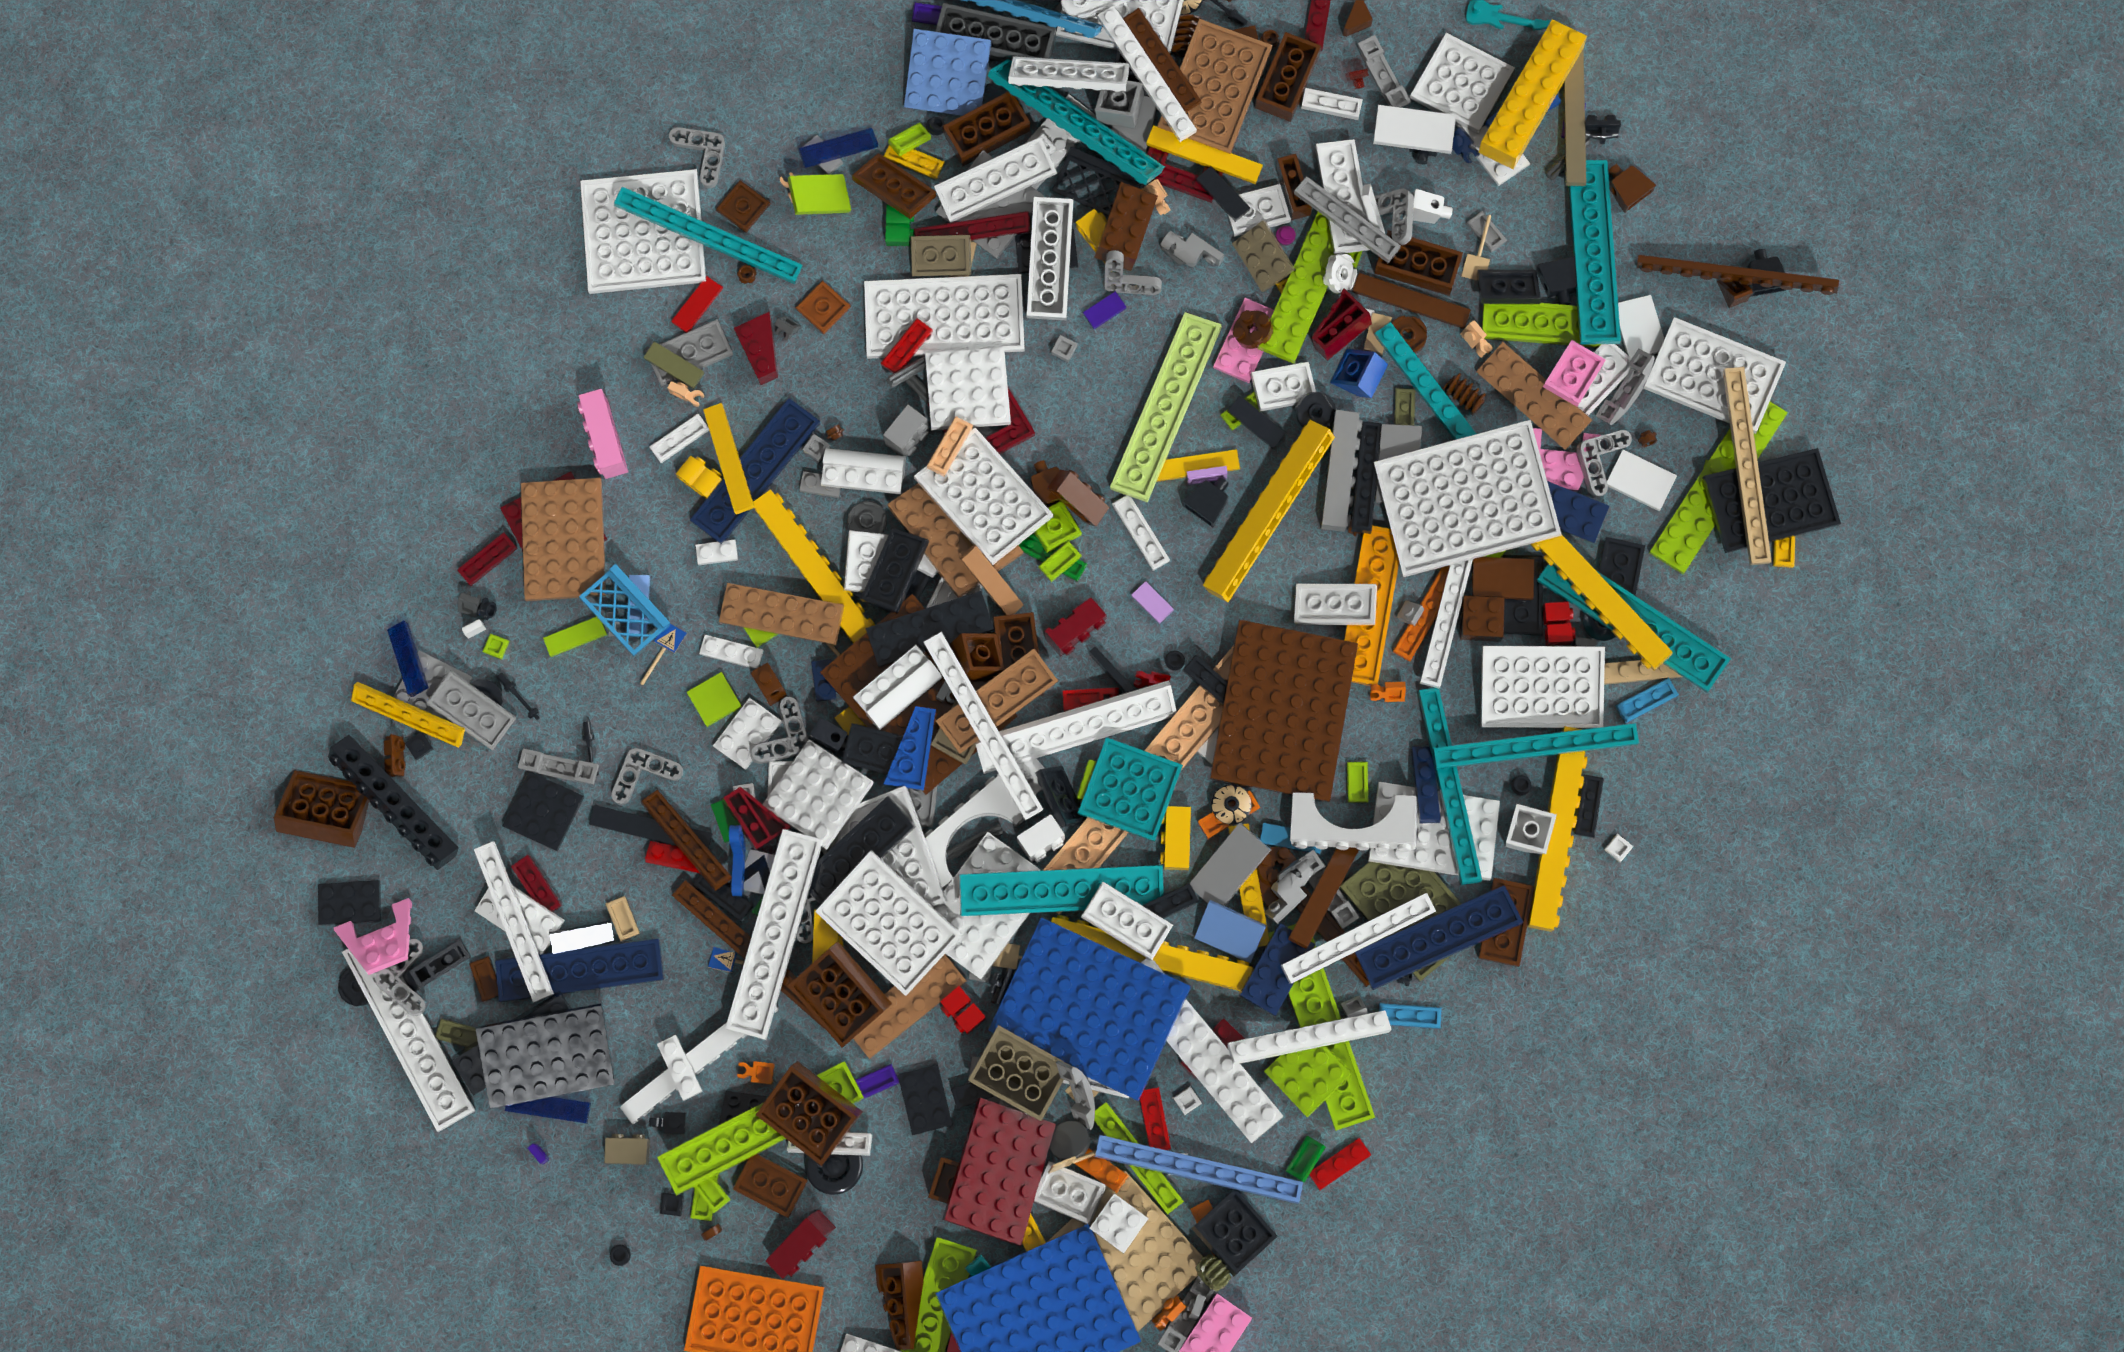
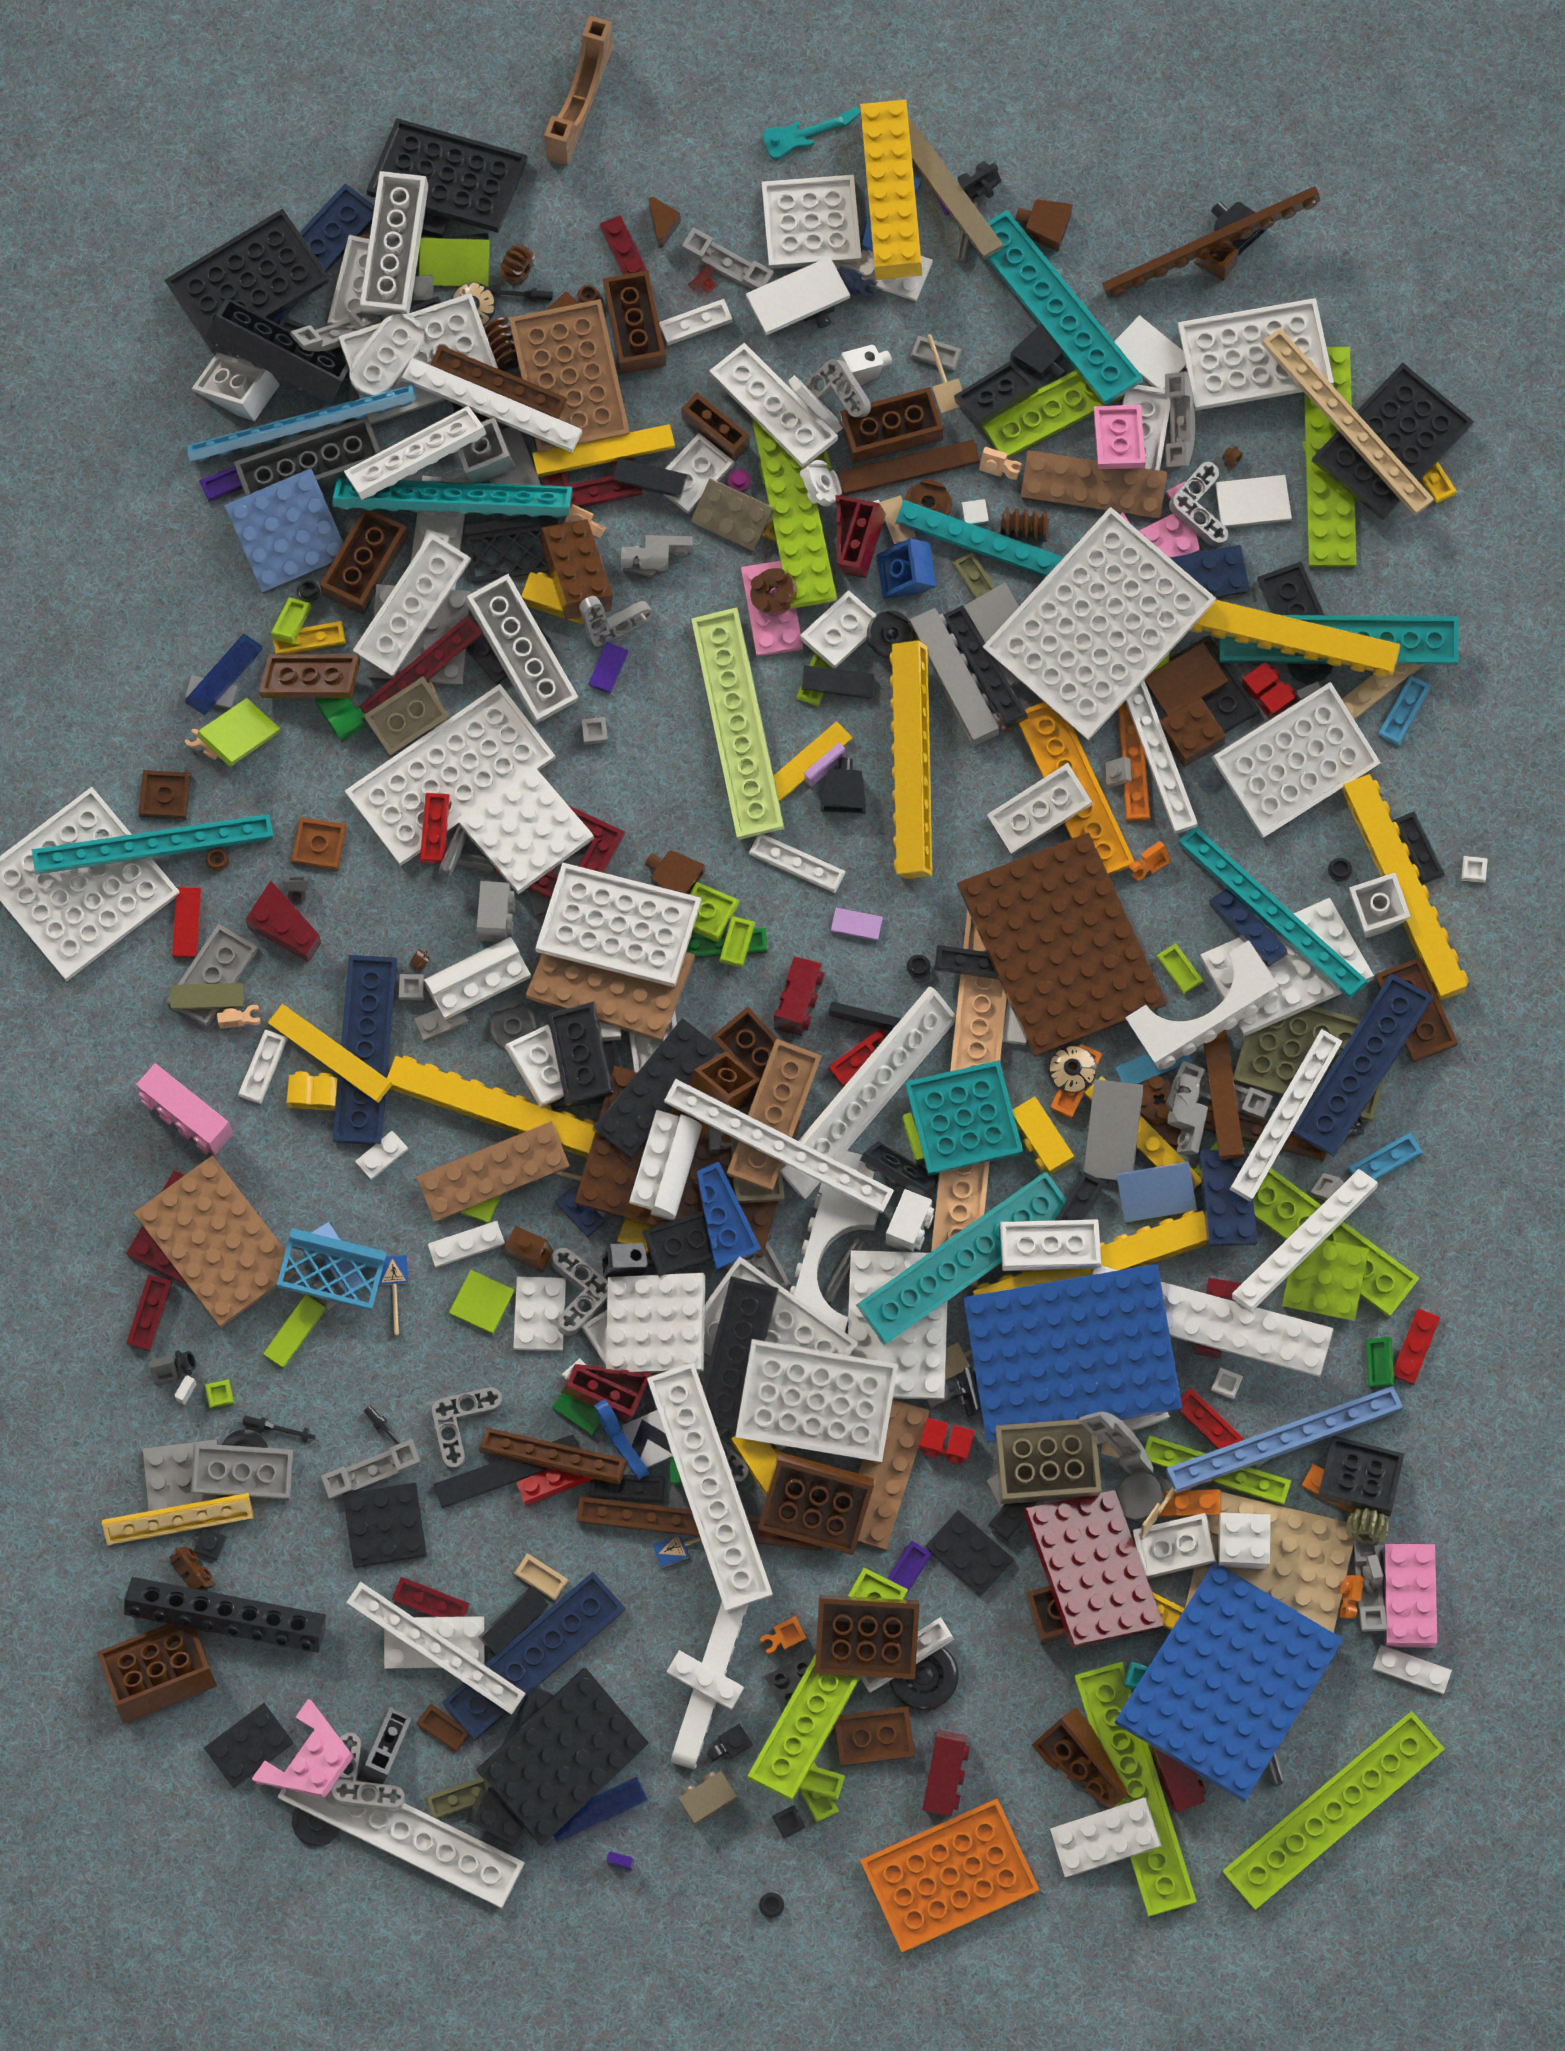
camera: 35 degrees left, 5 degrees down
(407, 658) = (139, 1462): clear blue plate -> none
(710, 151) = (91, 759): light grey beam -> none
(711, 1232) = (847, 1821): reddish brown tile -> none
(949, 446) = (551, 896): light nougat tile -> none
(991, 581) = (684, 1003): medium nougat tile -> none
(1078, 497) = (714, 865): brick -> none
(1150, 679) = (907, 1000): red plate -> none
(1347, 219) = (794, 425): light grey plate -> none
(1436, 362) = (975, 512): none -> white tile
(1535, 746) = (1329, 820): teal plate -> none

